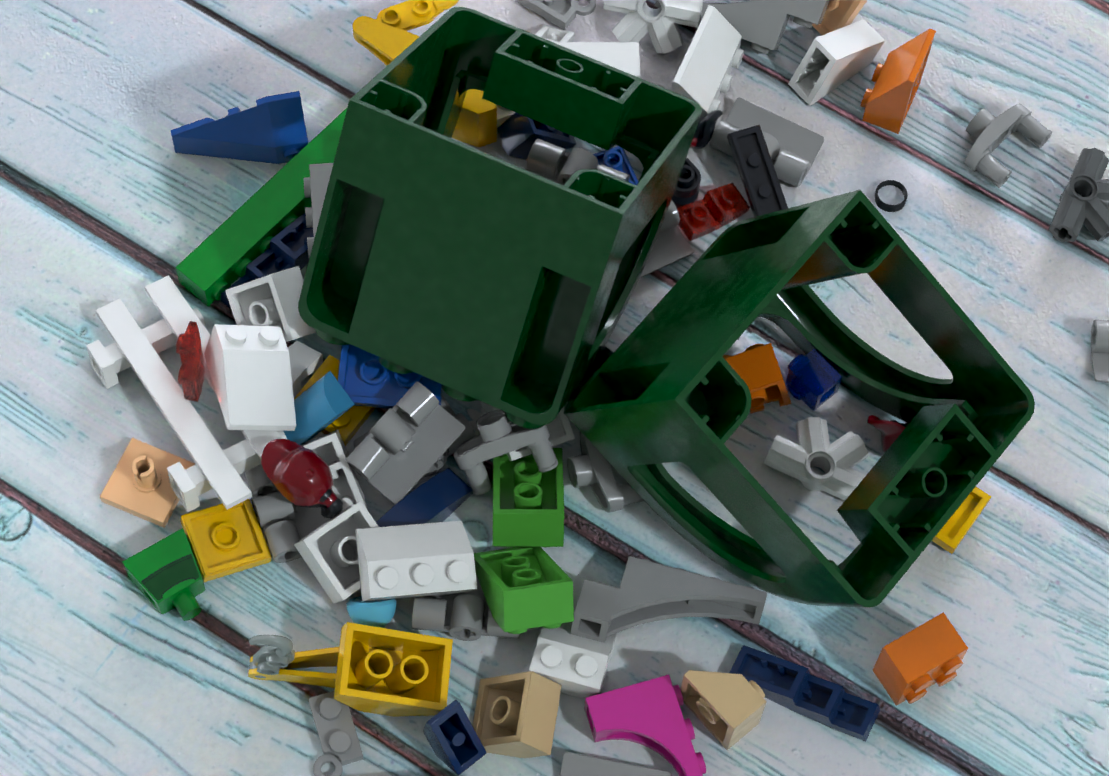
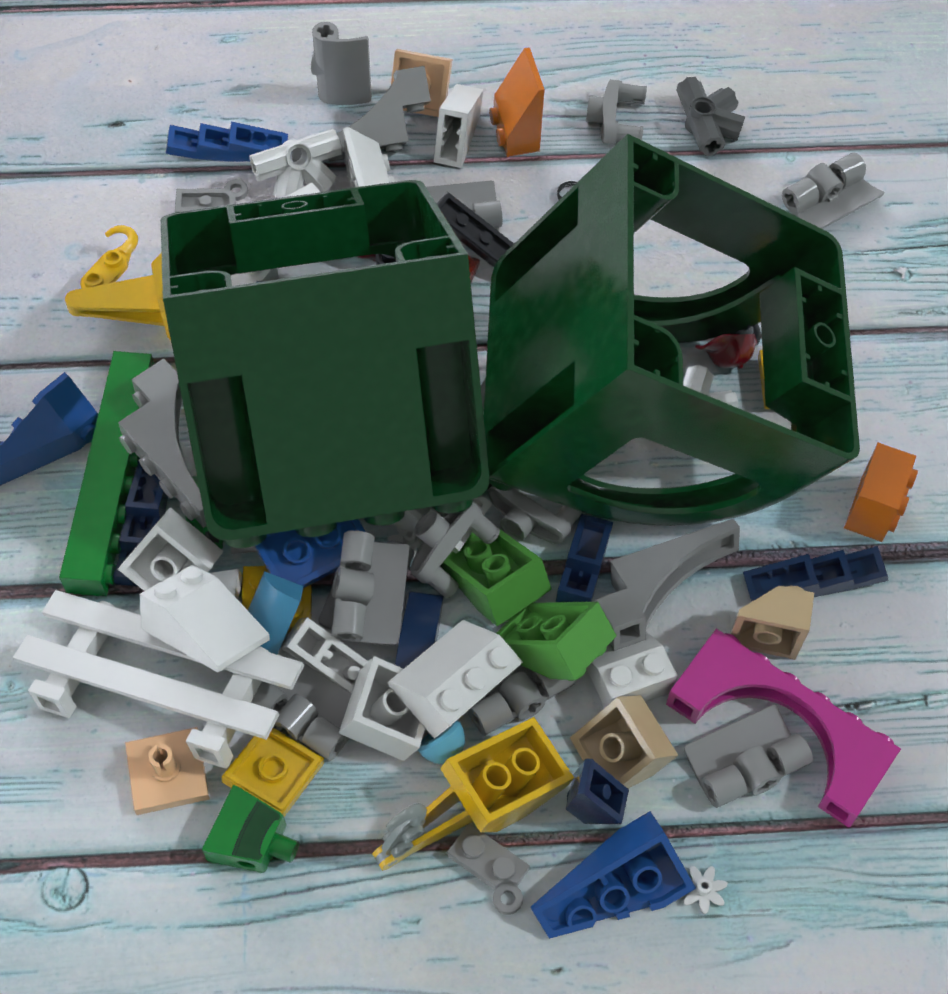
camera: 35 degrees left, 5 degrees down
(192, 359) = (138, 639): clear red slope -> none
(301, 476) = (309, 670): dark red hair -> none
(610, 543) = (584, 560): none -> dark blue slope

